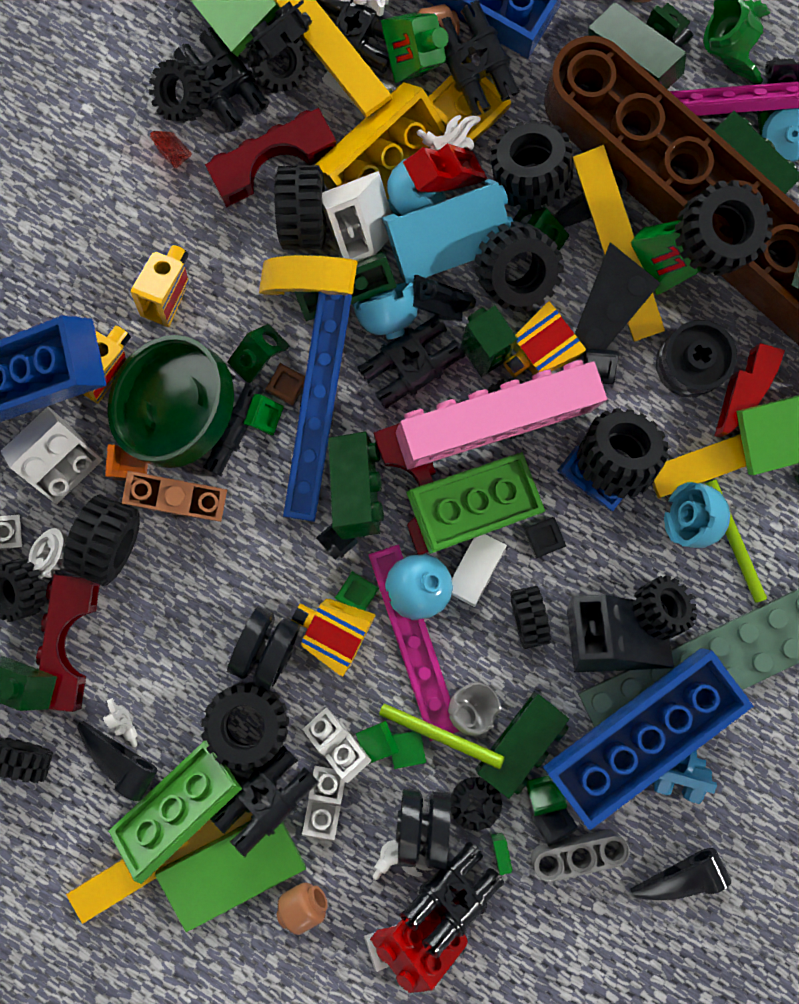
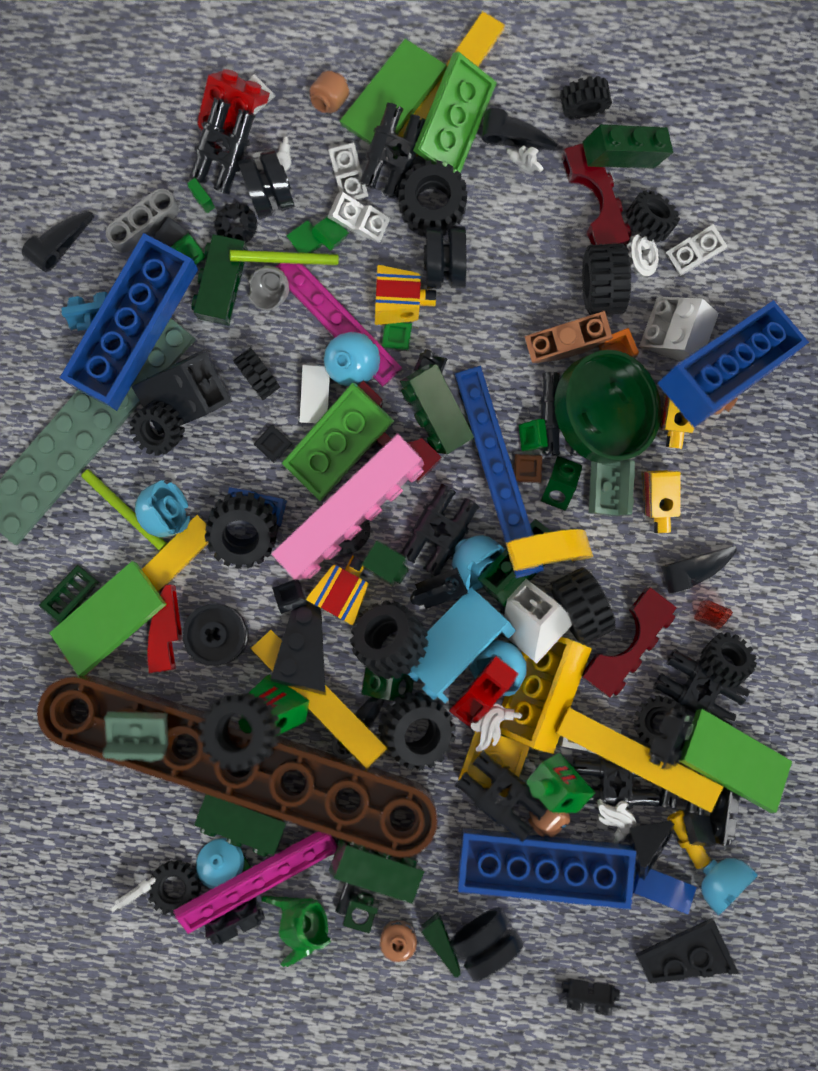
camera: 160 degrees right, 0 degrees up
(167, 200) = (694, 570): none -> black piece
(210, 317) = (612, 488): none -> sand green bracket

